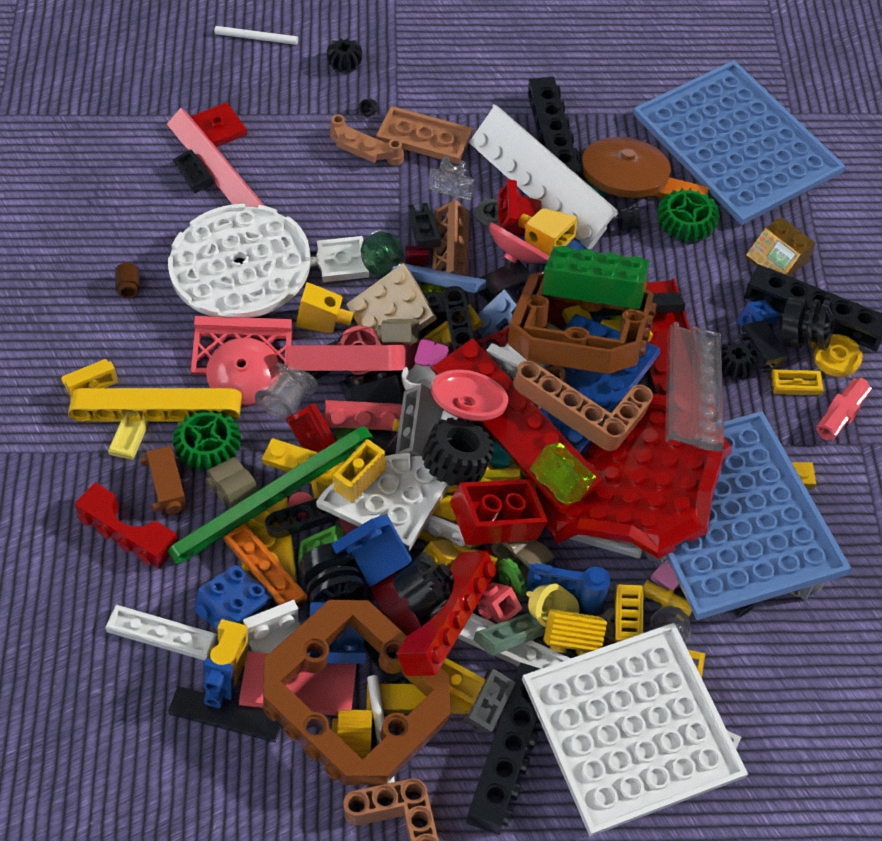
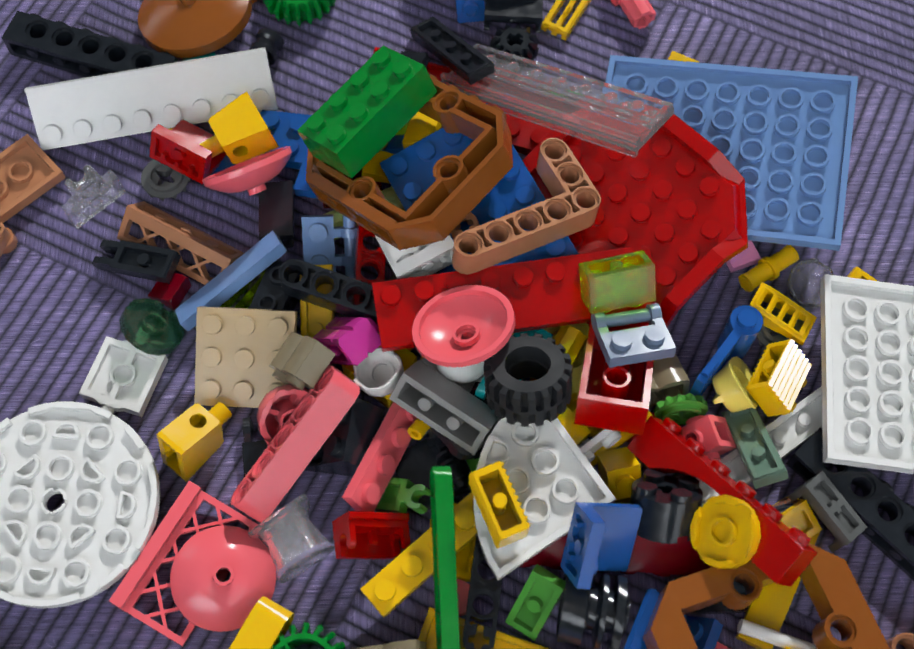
camera: 60 degrees left, 10 degrees up
(420, 615) = (725, 532): none -> yellow tile
(527, 508) = (633, 344): none -> sand blue plate
(701, 320) = (452, 50): none -> black tile

